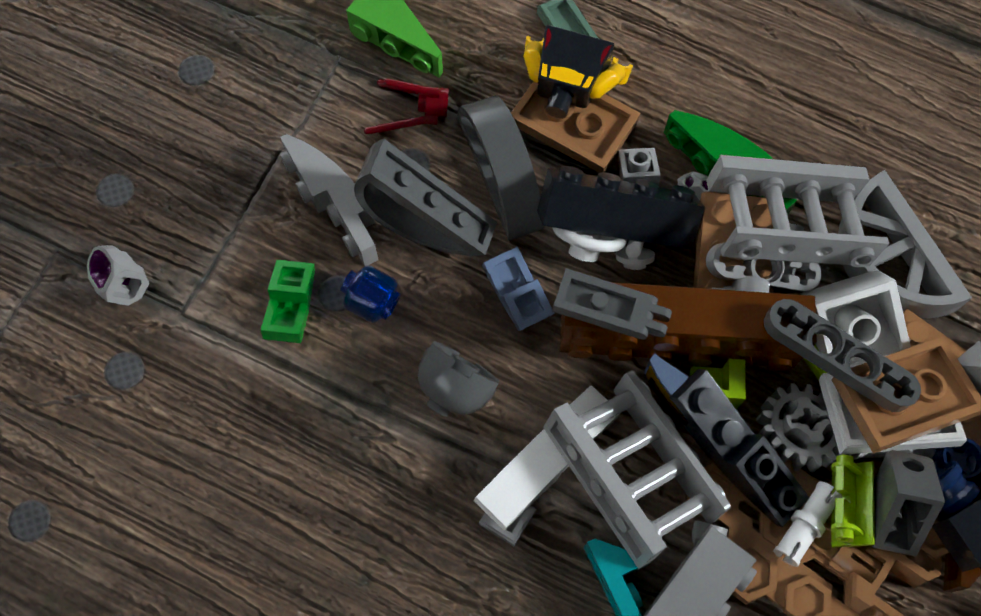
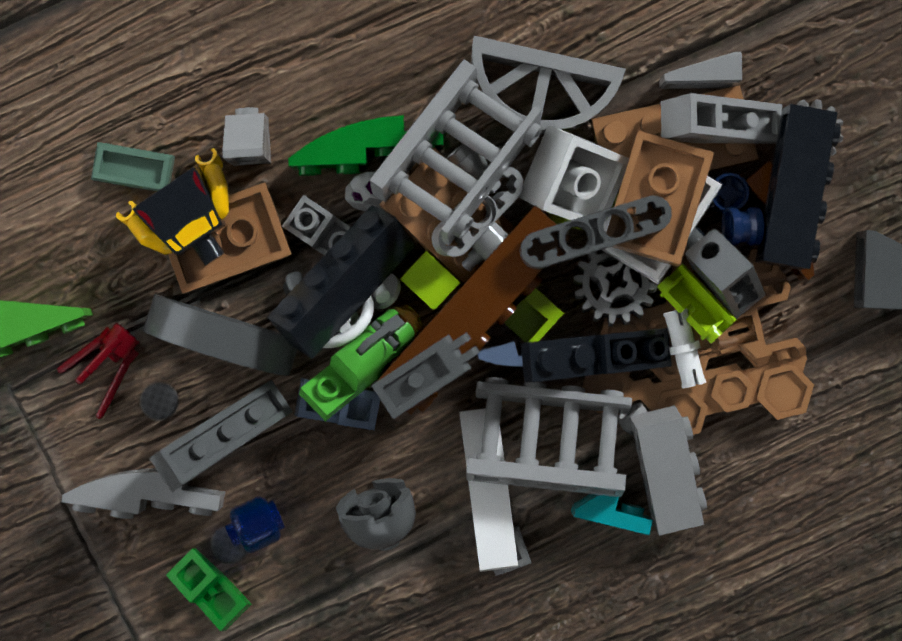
camera: 55 degrees left, 20 degrees up
(545, 270) = (361, 361): none -> bright green plate
(659, 79) = (246, 138): none -> light grey slope
(675, 270) = (430, 280): none -> lime panel

